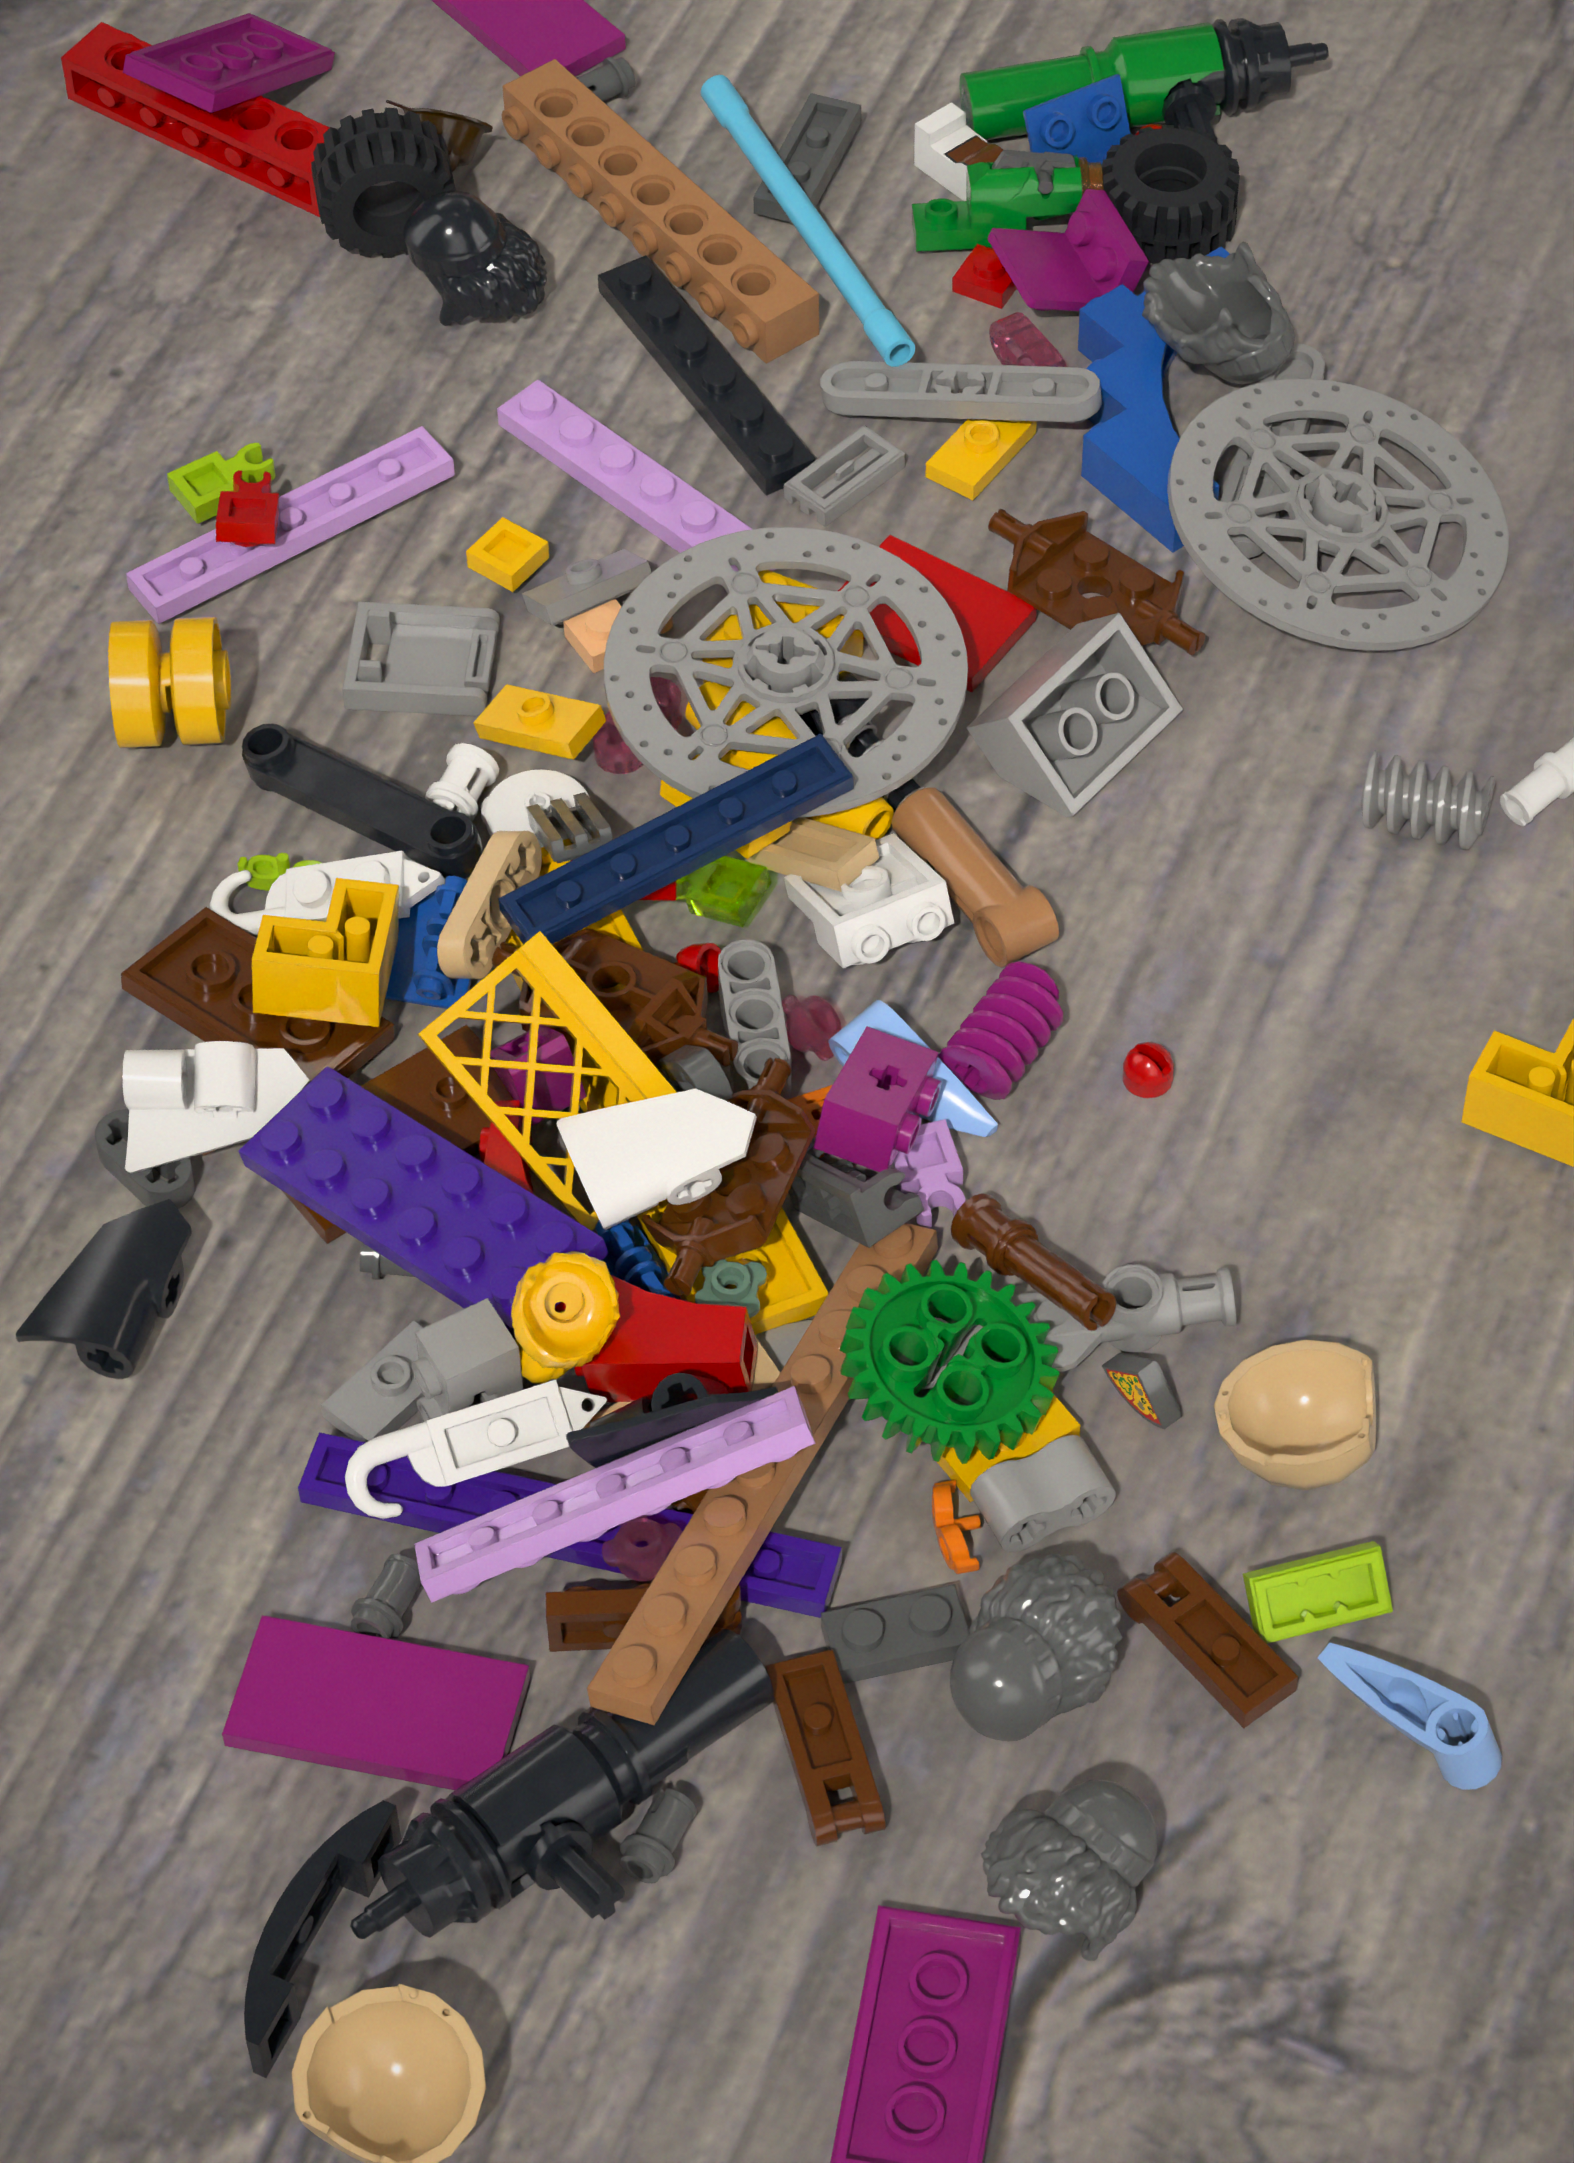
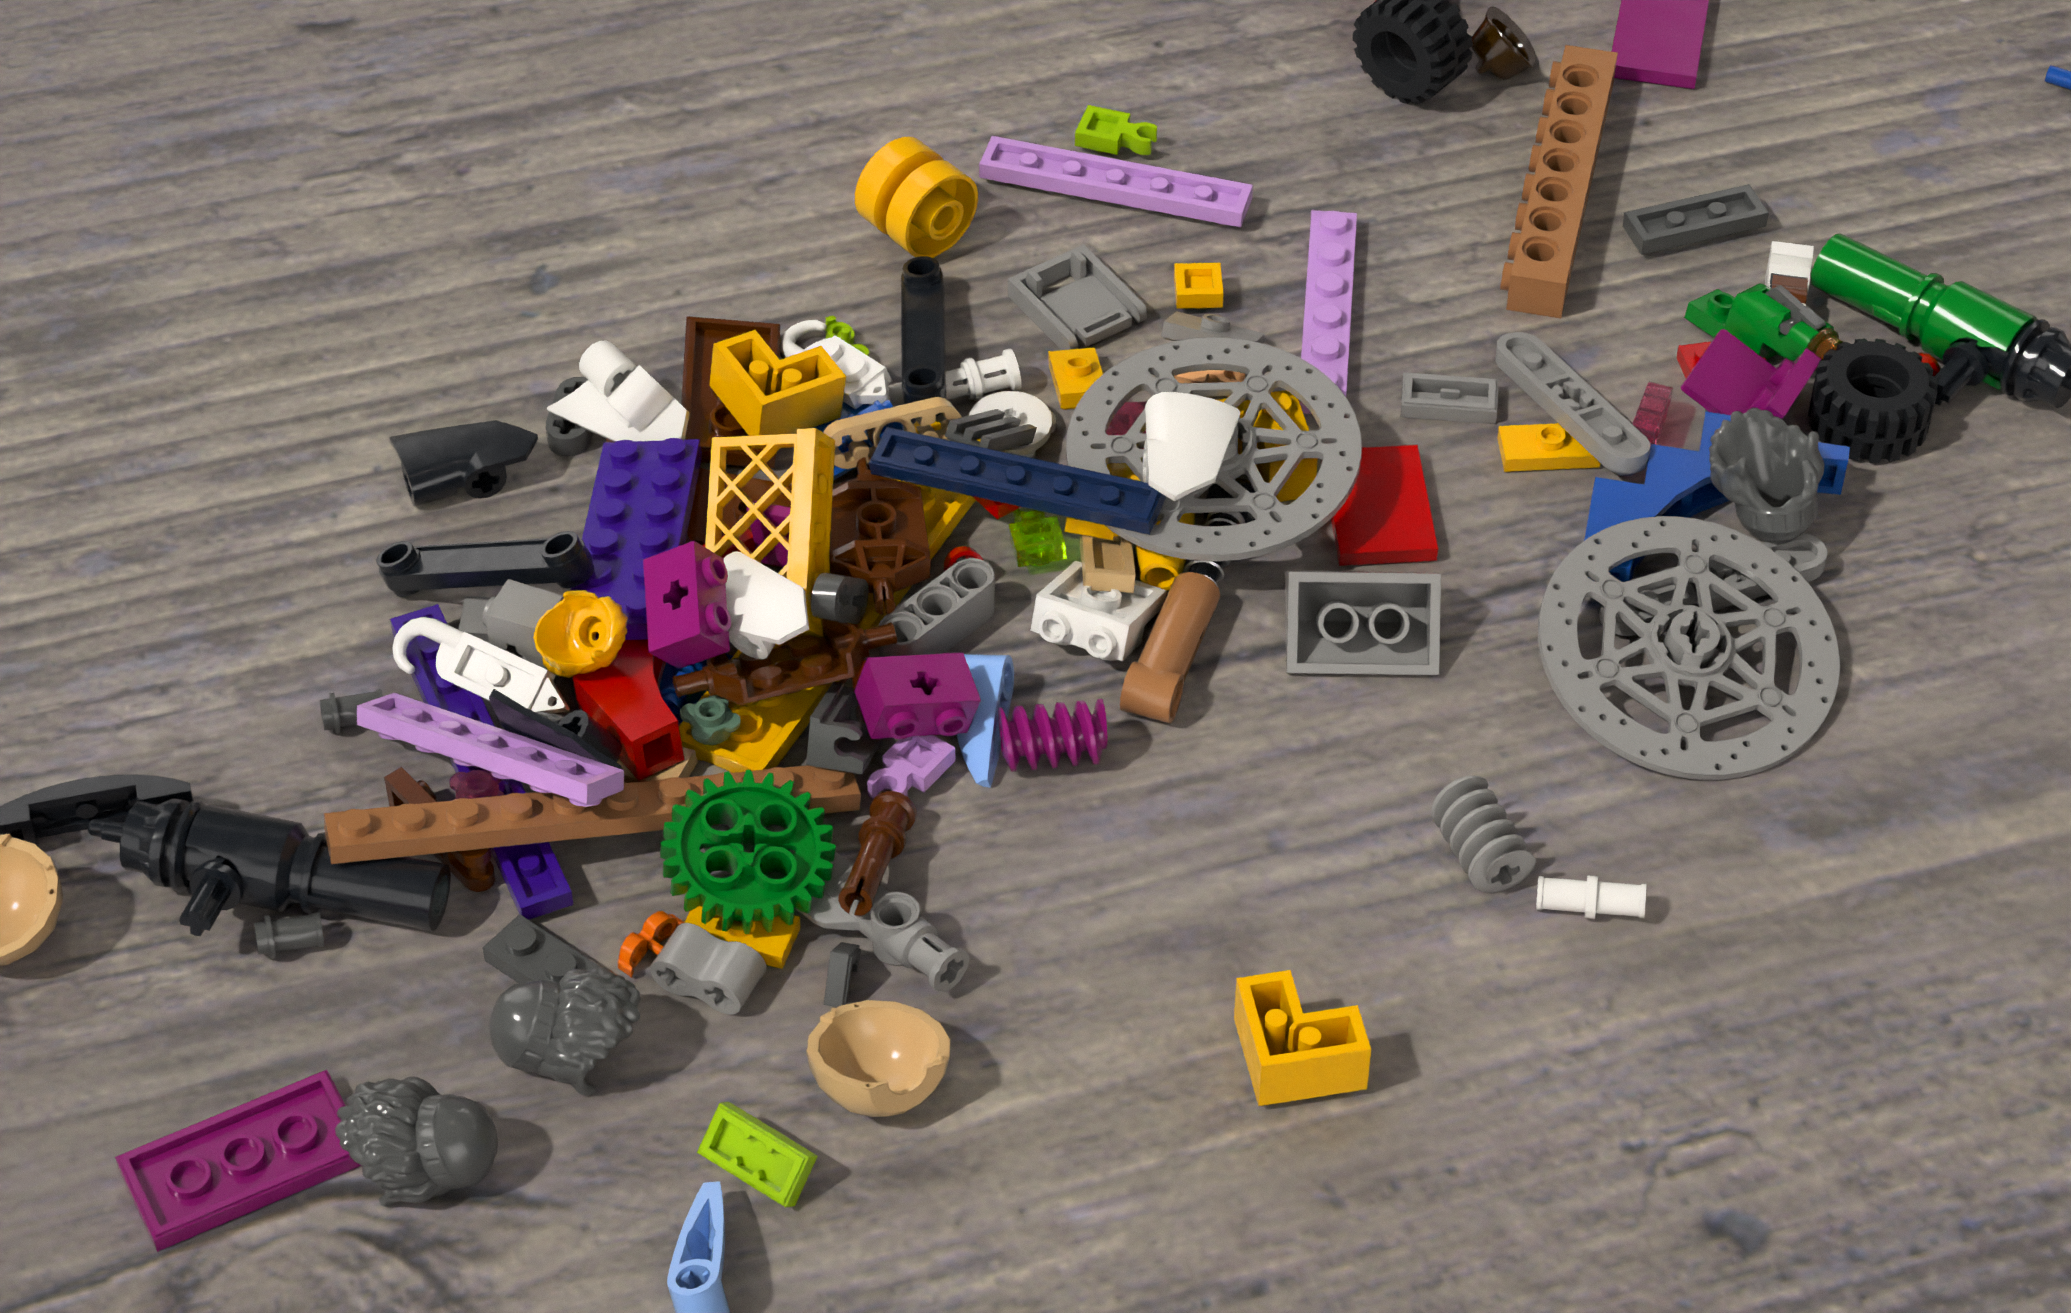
camera: 50 degrees right, 5 degrees down
(248, 513) = (1083, 152): red plate -> none
(334, 1350) = (482, 564): none -> black piece
(374, 1704) = (276, 747): magenta tile -> none
(475, 258) = (1408, 121): black hair -> none
(581, 1192) = (686, 605): none -> magenta brick
(610, 79) = (1642, 93): dark grey pin -> none
(705, 374) = (1458, 284): black plate -> none
(793, 682) = (1185, 441): none -> white panel
(811, 1024) = (969, 628): clear pink plate -> none
(824, 1746) = (420, 975): reddish brown plate -> none
(878, 322) = (1576, 325): medium azure piece -> none
(1062, 561) = (1492, 539): reddish brown plate -> none
(1080, 121) = (1863, 309): blue hinge -> none
(1141, 1070) = (1110, 842): red hinge -> none
(1209, 1639) = (671, 1121): reddish brown plate -> none

